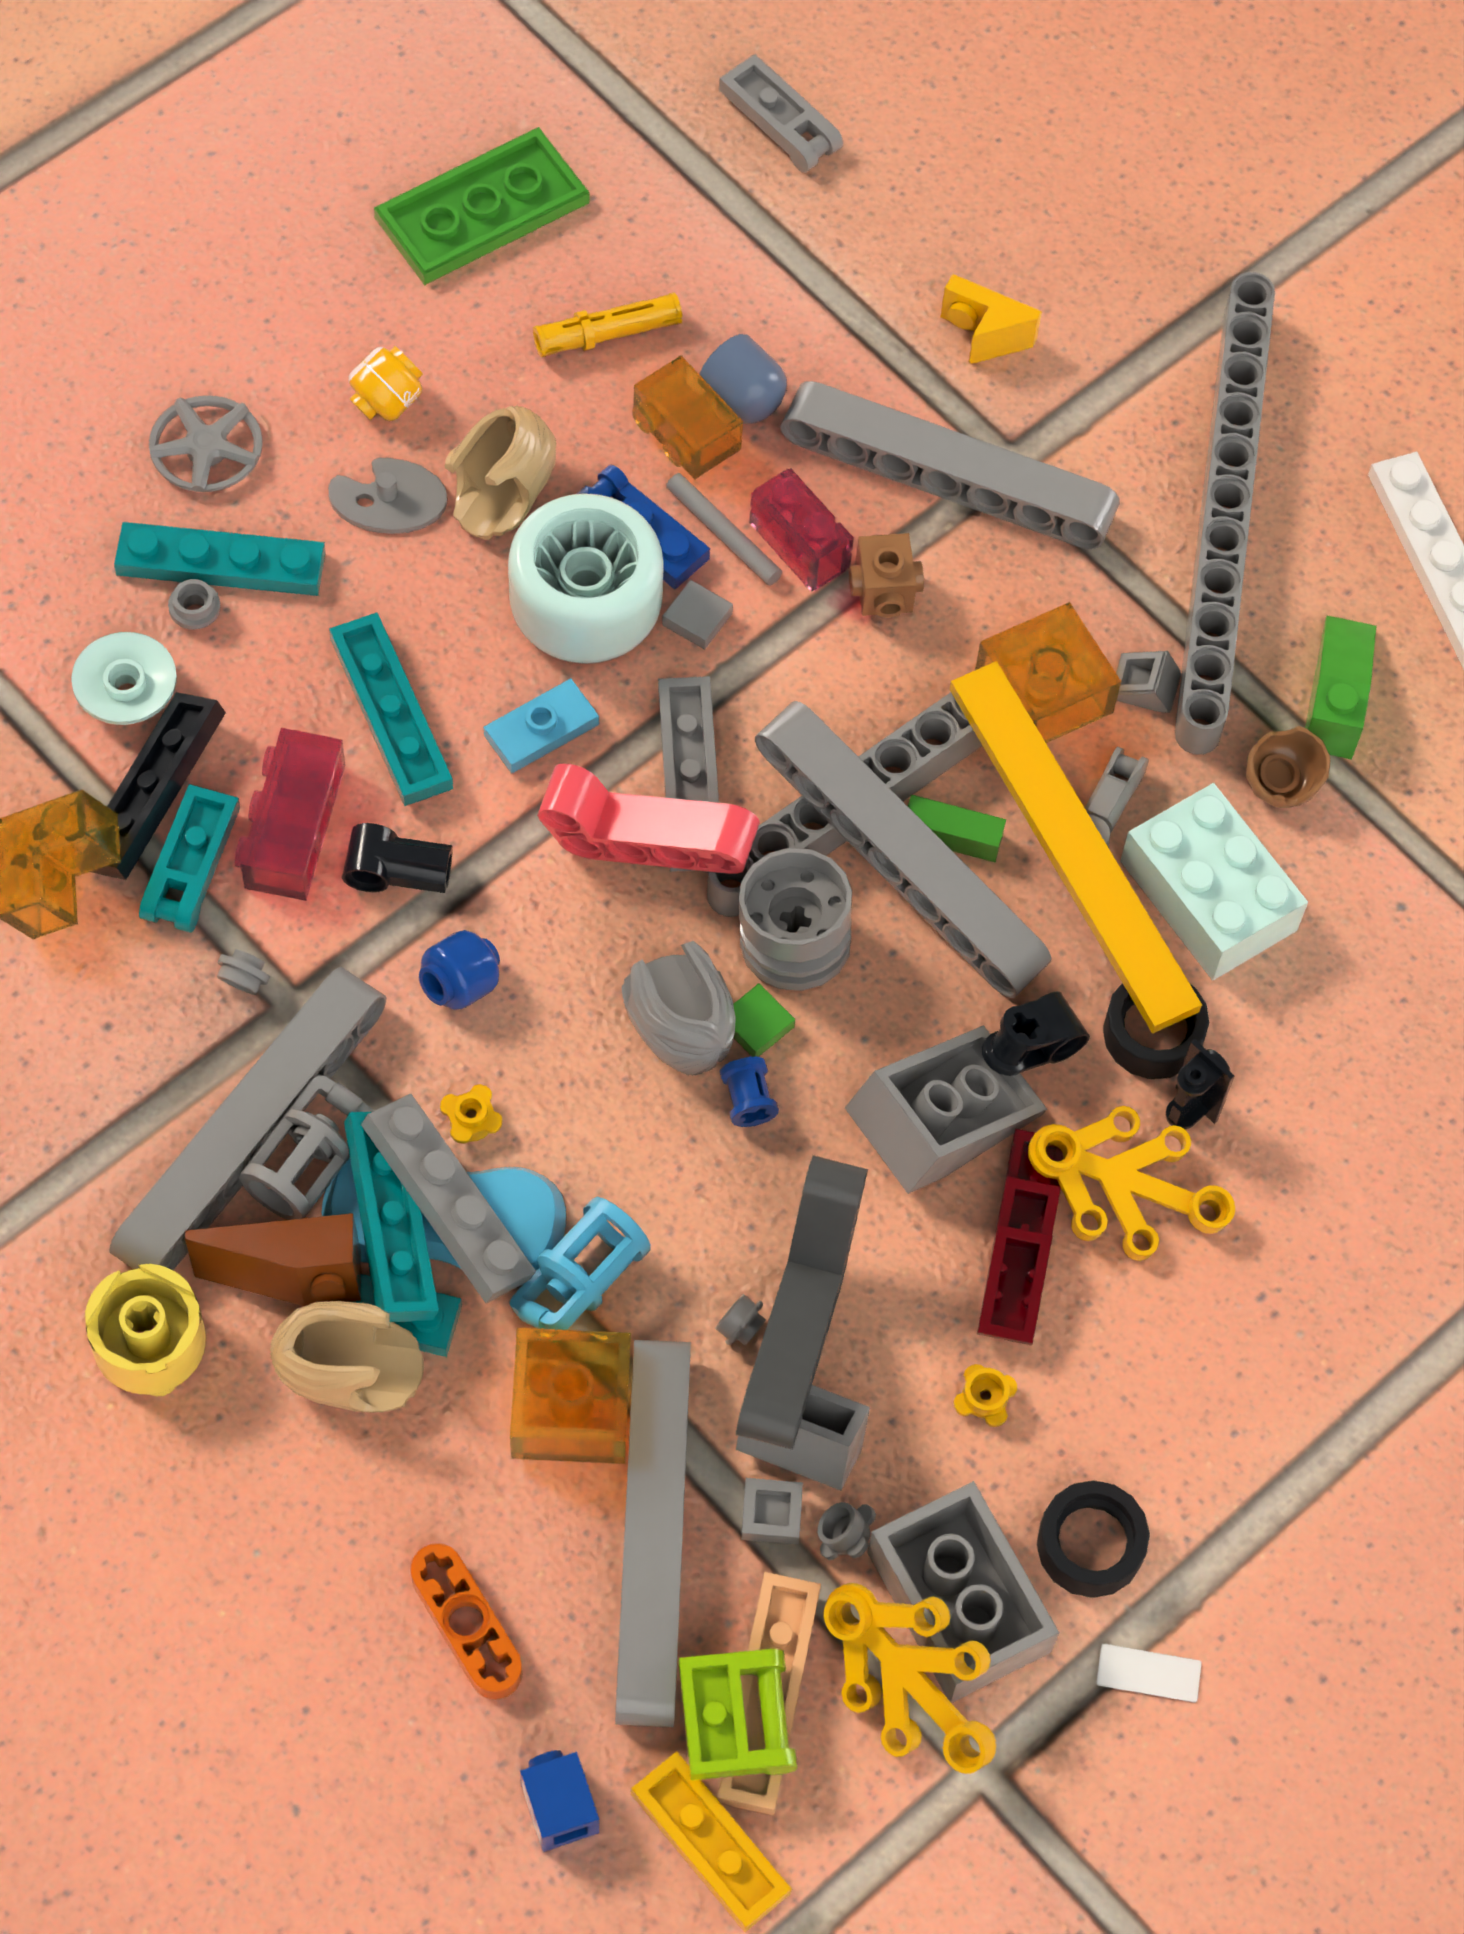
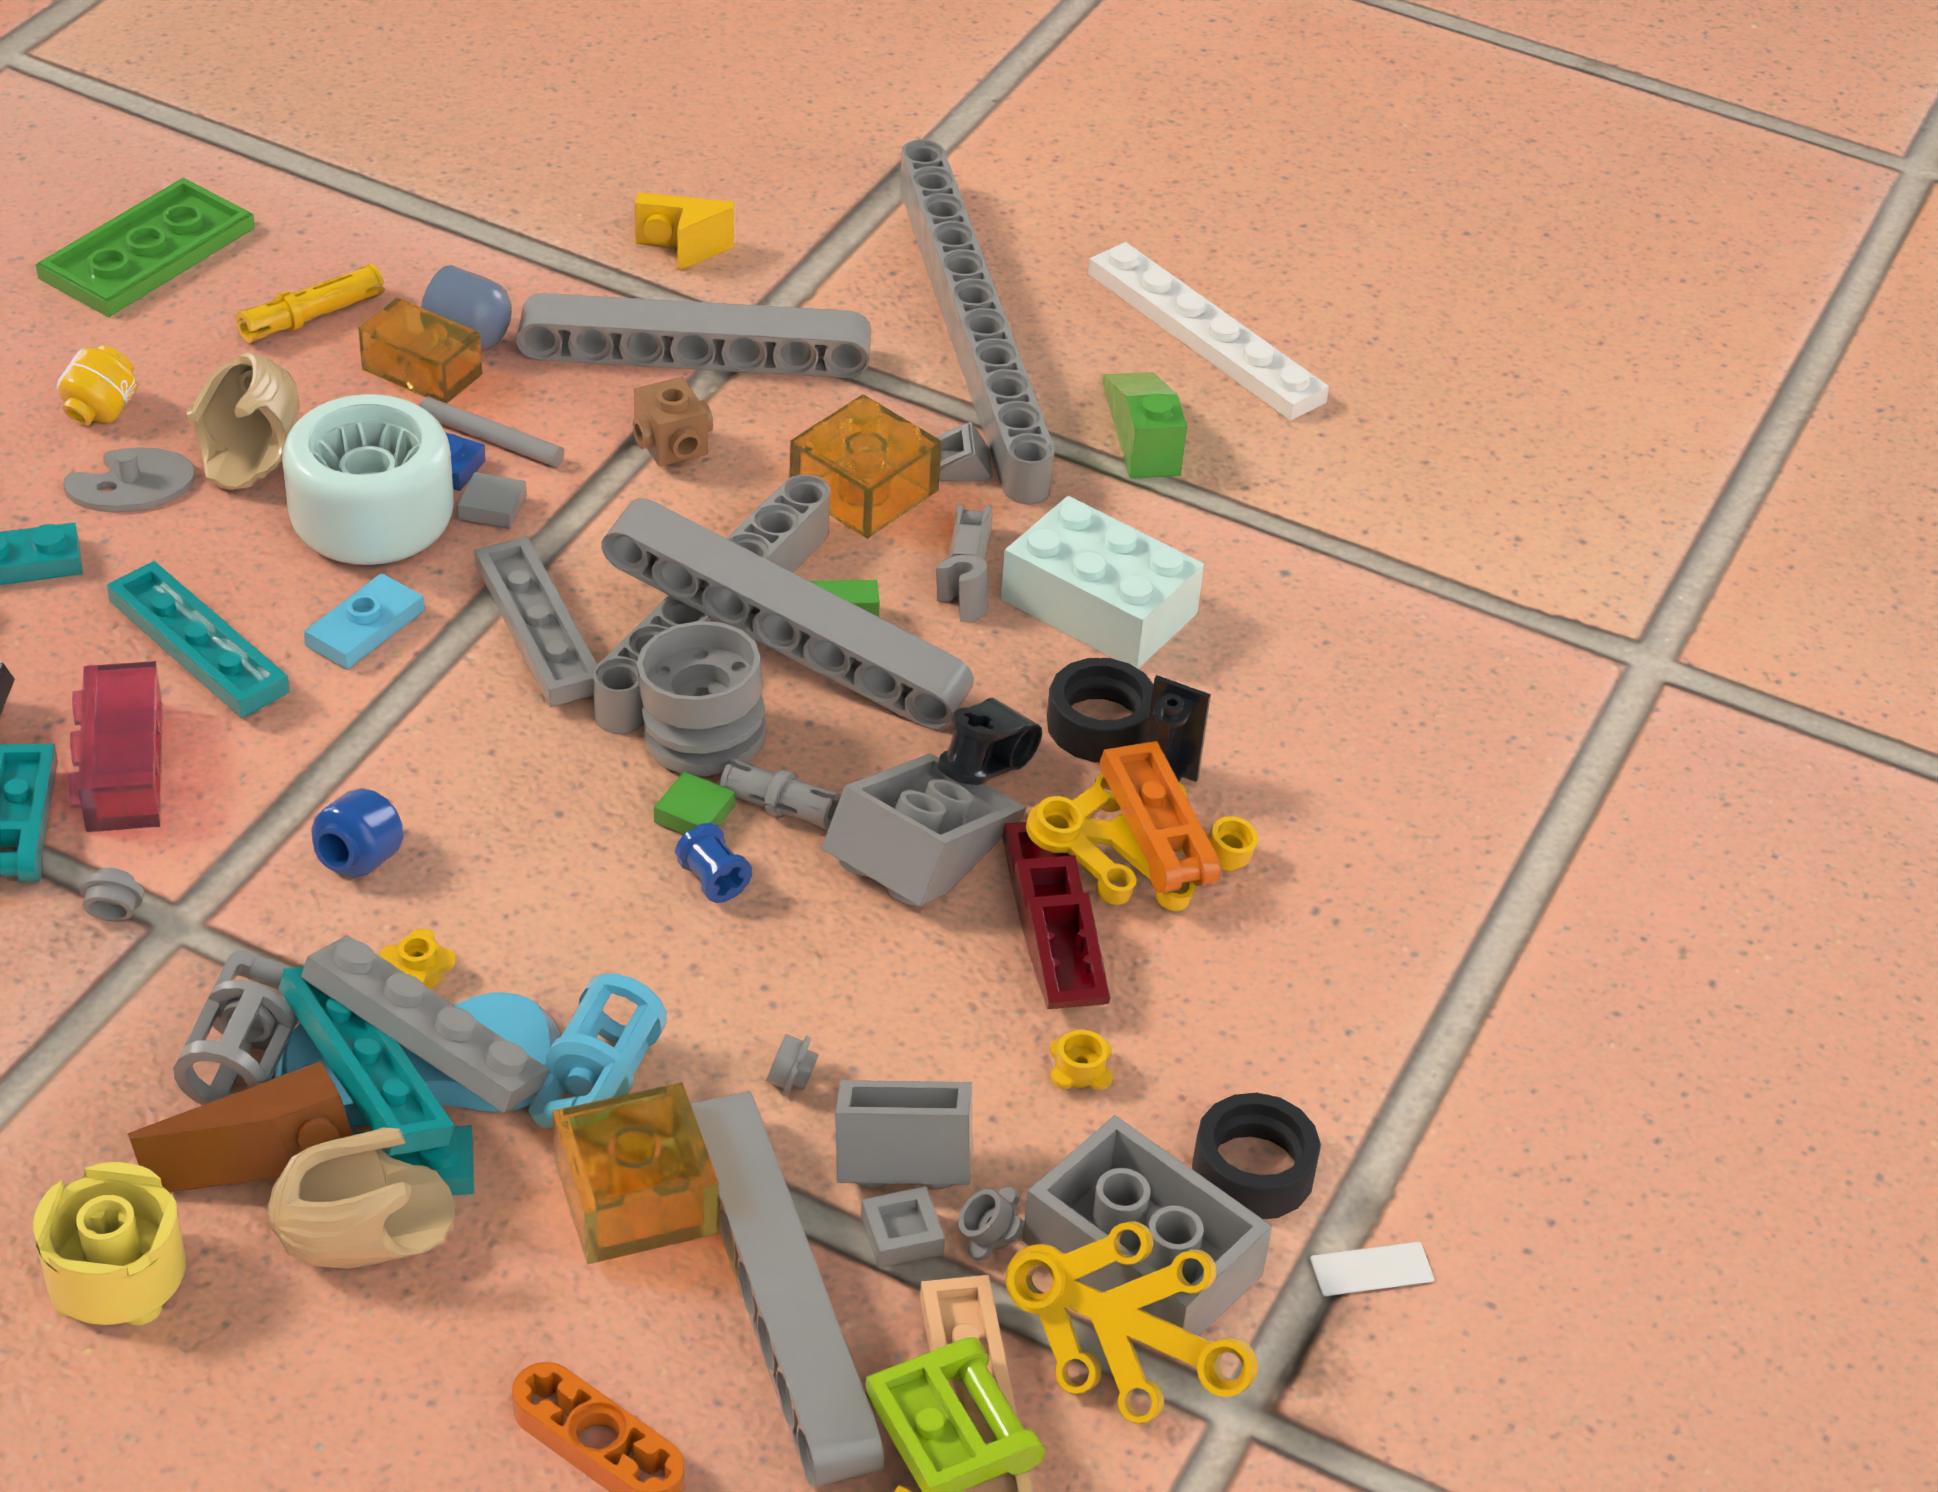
camera: 20 degrees left, 20 degrees down
(209, 1167) = (135, 1074): light grey beam -> none
(383, 859) = (230, 762): black piece -> none
(645, 828) = (512, 662): coral beam -> none
(681, 1009) = (617, 814): light grey hair -> none
(780, 112) = (420, 126): light grey plate -> none
(801, 529) = (571, 407): clear pink brick -> none
(803, 1303) = (855, 1000): dark grey beam -> none
(834, 1033) = (780, 793): none -> light grey pin
(1075, 848) = (961, 575): yellow tile -> none
(1148, 1172) = (1159, 816): none -> orange plate
(1288, 767) = (1129, 480): medium nougat hair -> none

